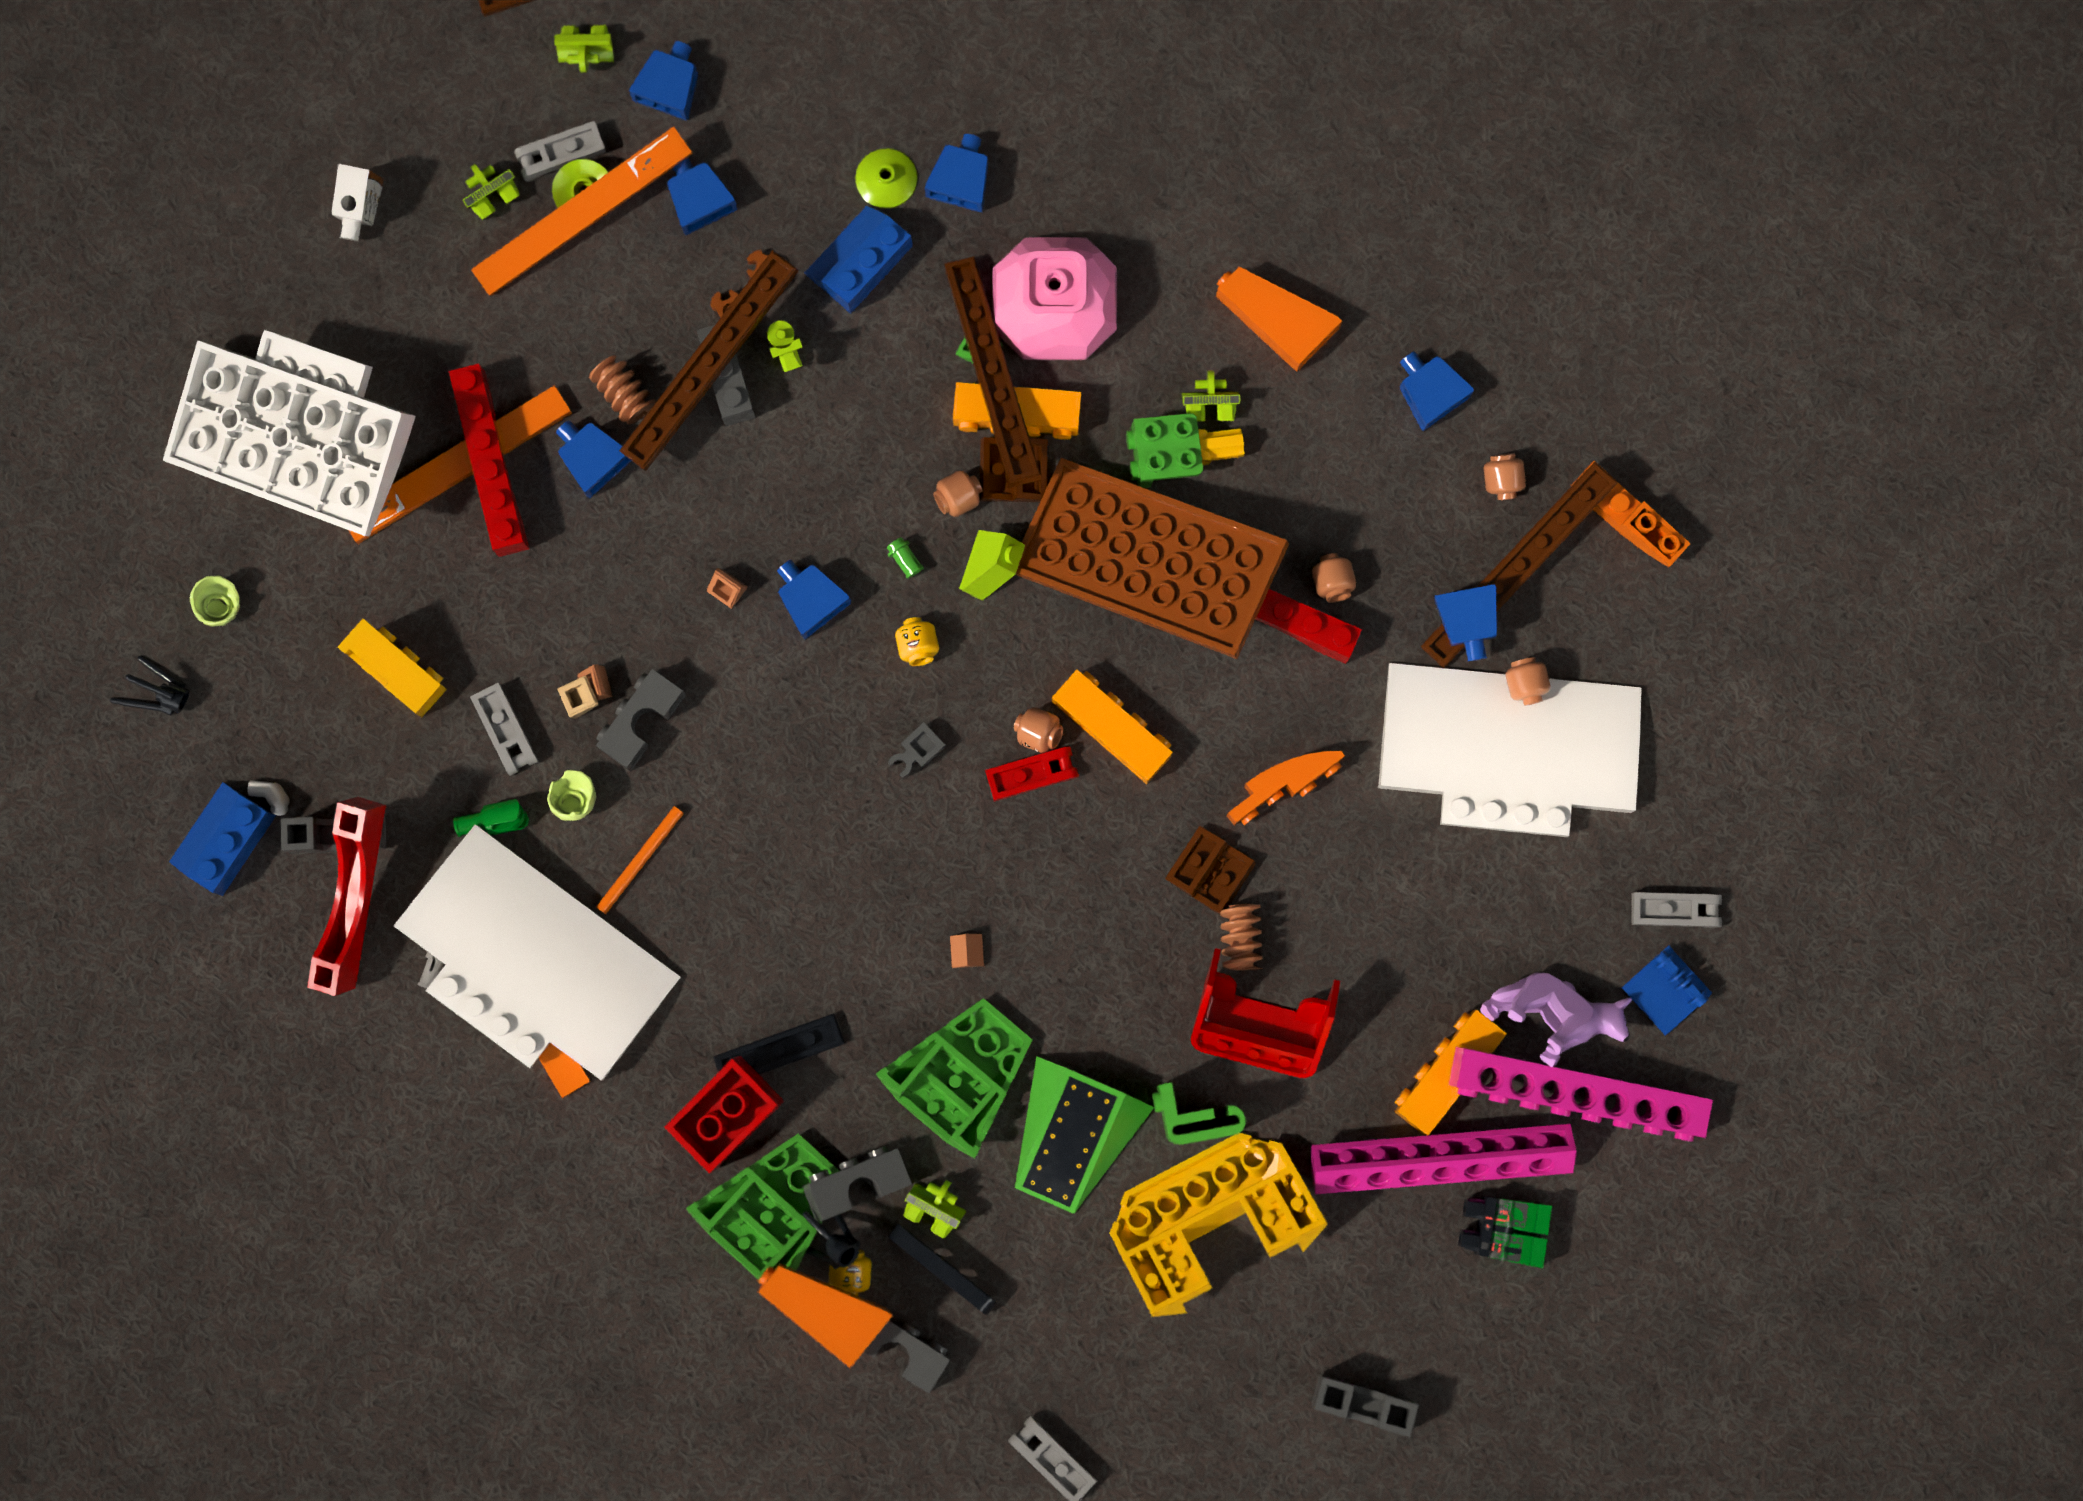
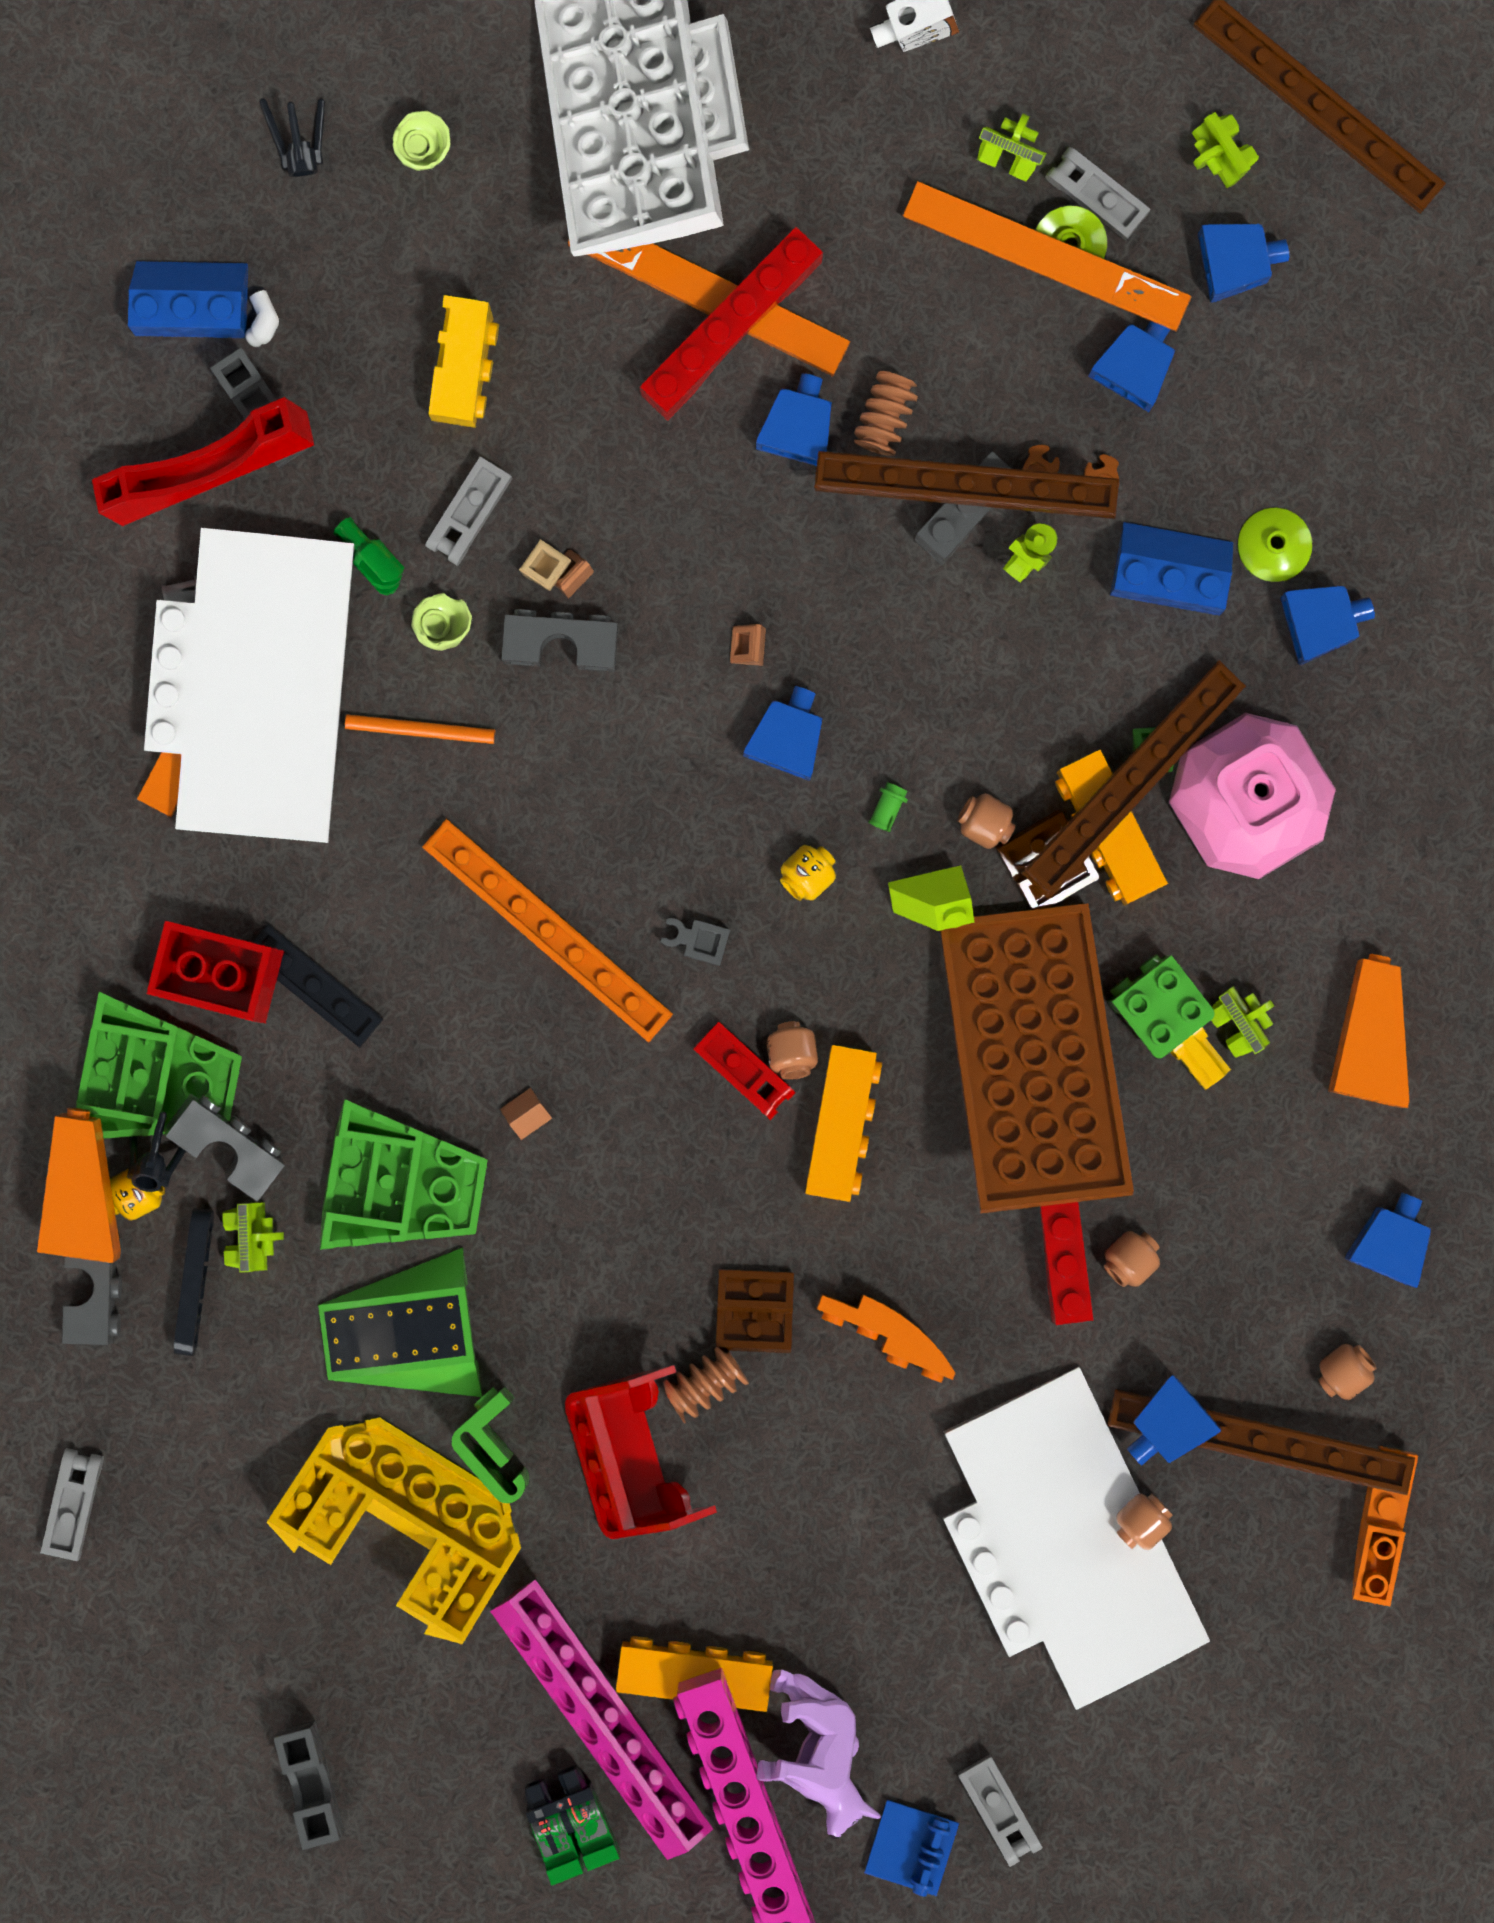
camera: 55 degrees right, 5 degrees up
(843, 855) = (547, 930): none -> orange tile

